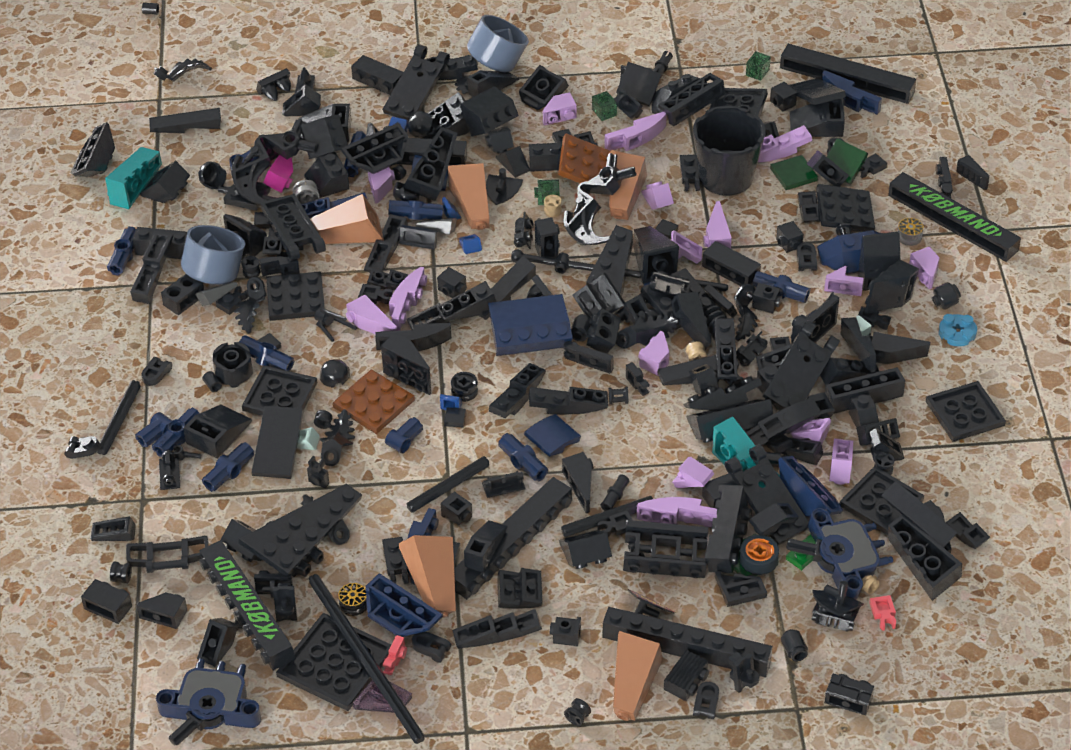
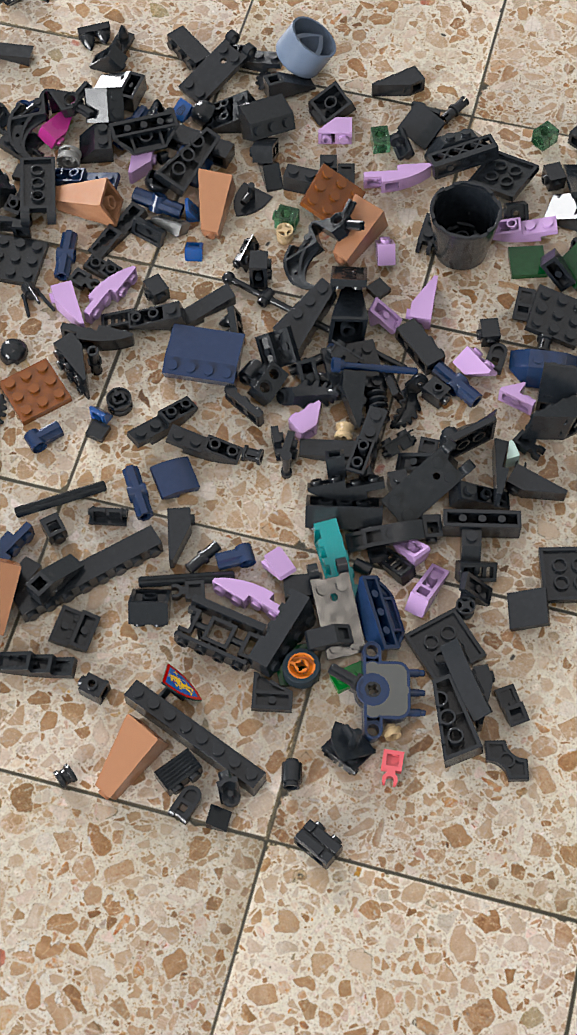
camera: 20 degrees right, 15 degrees up
(345, 277) = (65, 255): none -> dark blue piece
(424, 350) = (94, 360): none -> black pin
(601, 55) = (400, 84): none -> black slope
(640, 221) = (348, 276): none -> black plate
(650, 481) = (240, 556): none -> dark blue piece
(656, 381) = (288, 454): none -> black plate
(667, 293) = (339, 365): none -> dark blue piece
(743, 703) = (218, 818): none -> black slope
(791, 265) = (473, 365): none -> lavender slope
(942, 448) = (528, 609): none -> black tile
(994, 580) = (513, 766): none -> black tile

